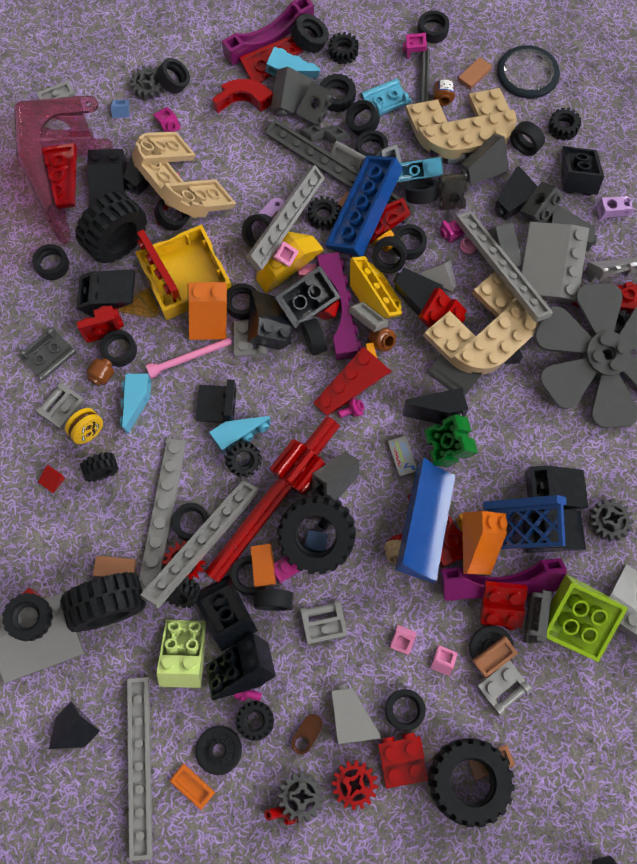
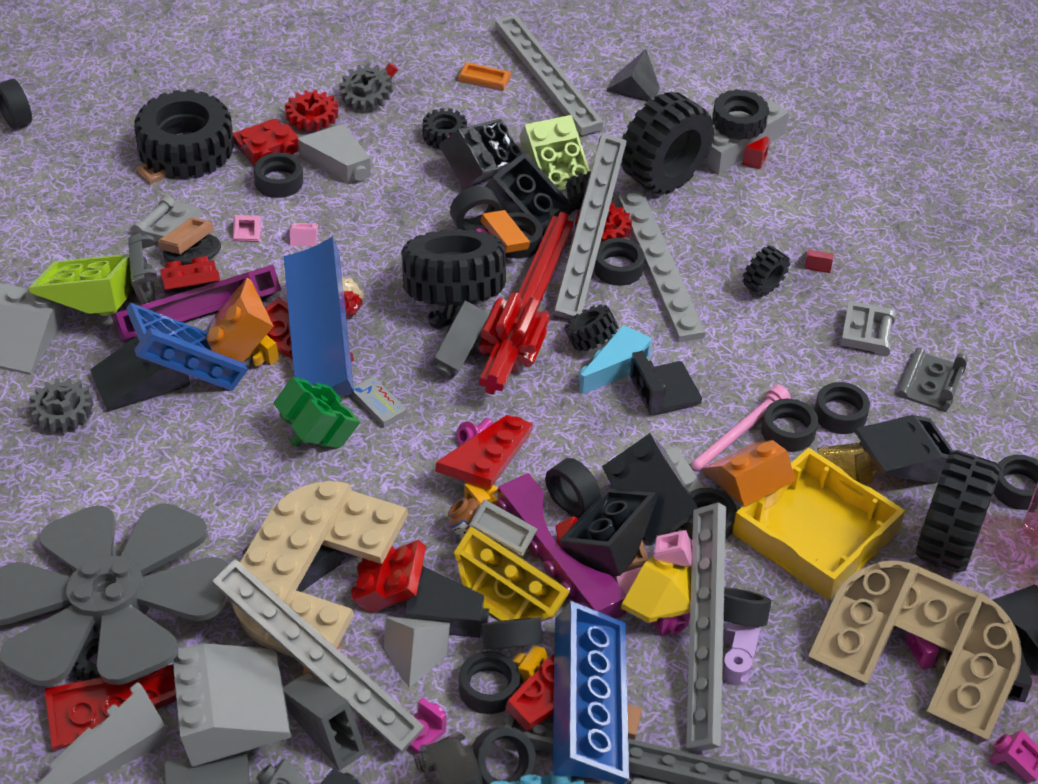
camera: 155 degrees right, 25 degrees down
(83, 425) = (817, 304): yellow head -> none
(100, 371) = (844, 367): dark orange head -> none
(105, 321) = (883, 403): red plate -> none
(111, 565) = (682, 205): nougat tile -> none
(136, 395) = (778, 359): medium azure slope -> none
(155, 333) = (791, 409): none -> black tyre
(160, 270) = (840, 483): red wing -> none
(231, 756) = (486, 103): black wheel -> none
(309, 730) = (379, 140): reddish brown piece -> none
(320, 204) = (655, 667): black tyre -> none
(327, 628) = (403, 214): light grey plate -> none
(436, 406) = (351, 446): black slope -> none
(558, 481) = (148, 414): black slope -> none

